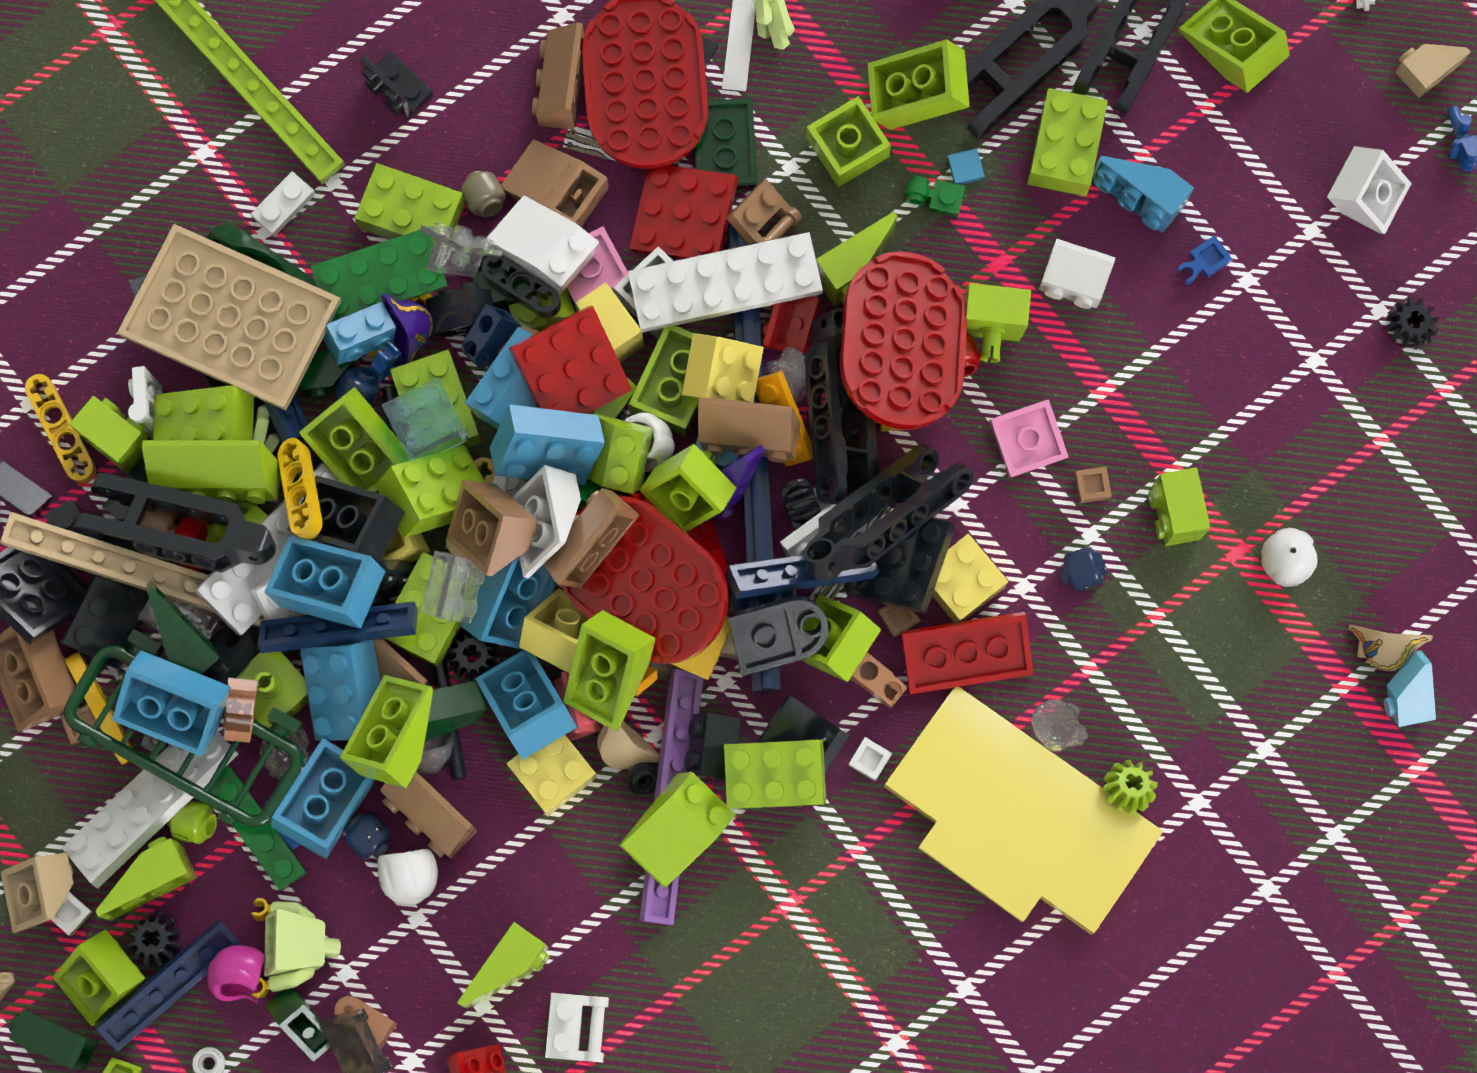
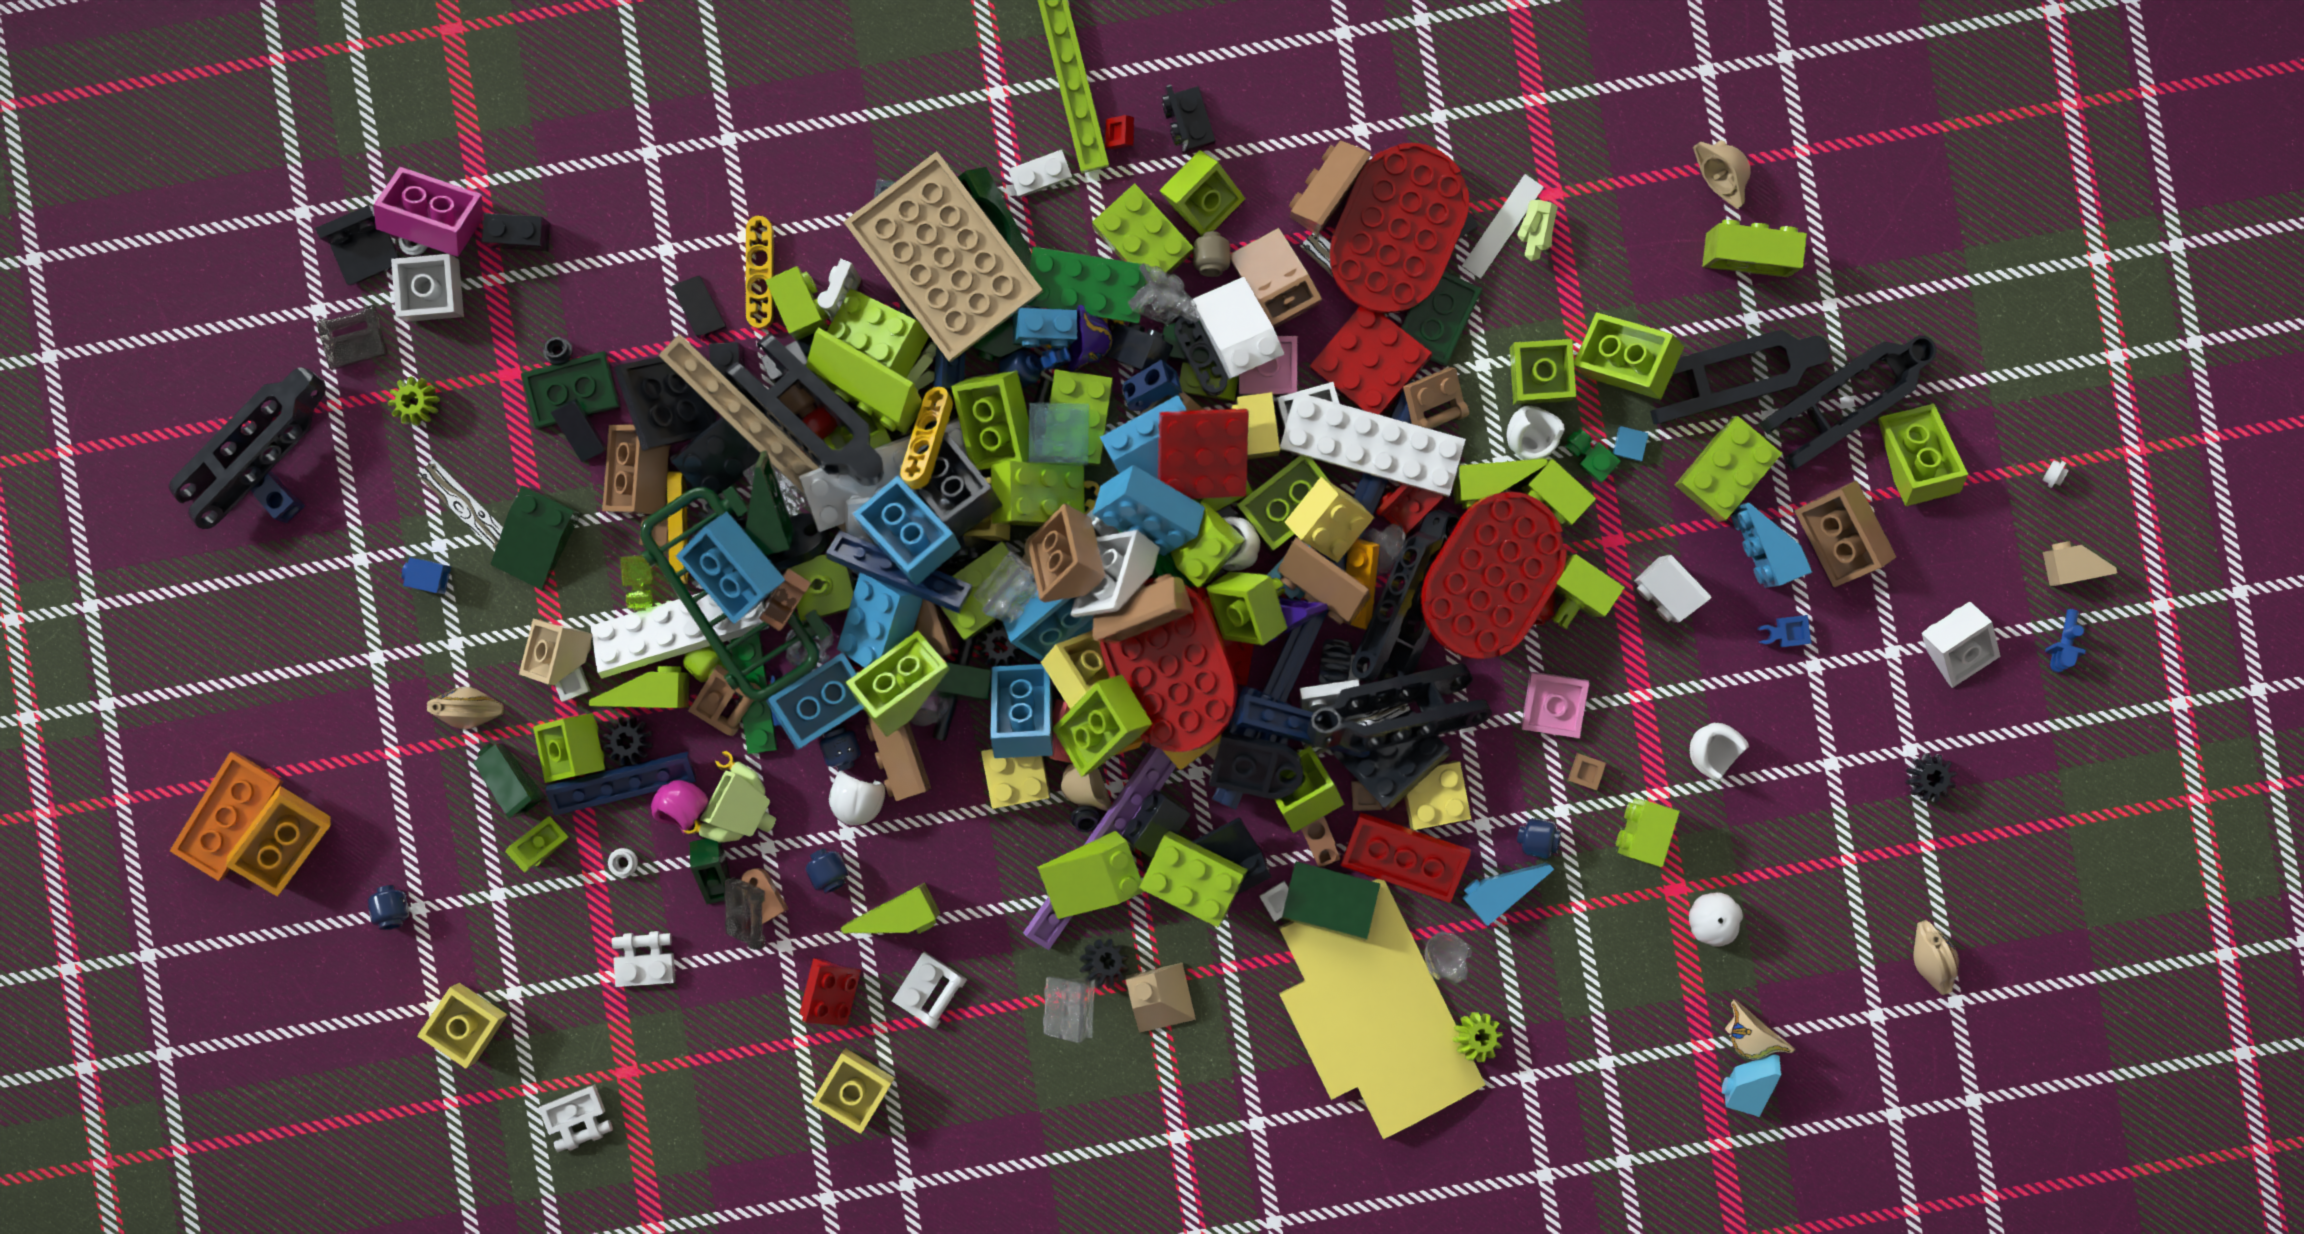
camera: 30 degrees right, 10 degrees up
(82, 773) = (636, 573): none -> clear neon green plate
(219, 850) = (714, 699): none -> medium nougat plate
(338, 128) = (1119, 132): none -> red plate
(415, 962) = (826, 870): none -> dark blue head
(445, 143) = (1202, 193): none -> lime slope
(722, 970) = (1068, 1008): none -> clear bracket
(733, 908) = (1112, 960): none -> black gear
(806, 914) = (1160, 997): none -> tan slope
(870, 198) = (1534, 433): none -> white piece
(918, 730) = (1330, 901): none -> dark green tile
(924, 236) = (1559, 492): none -> lime brick
(1072, 642) = (1499, 892): none -> dark azure slope
(1200, 398) = (1716, 749): none -> white piece
(1207, 145) = (1845, 534): none -> medium nougat slope

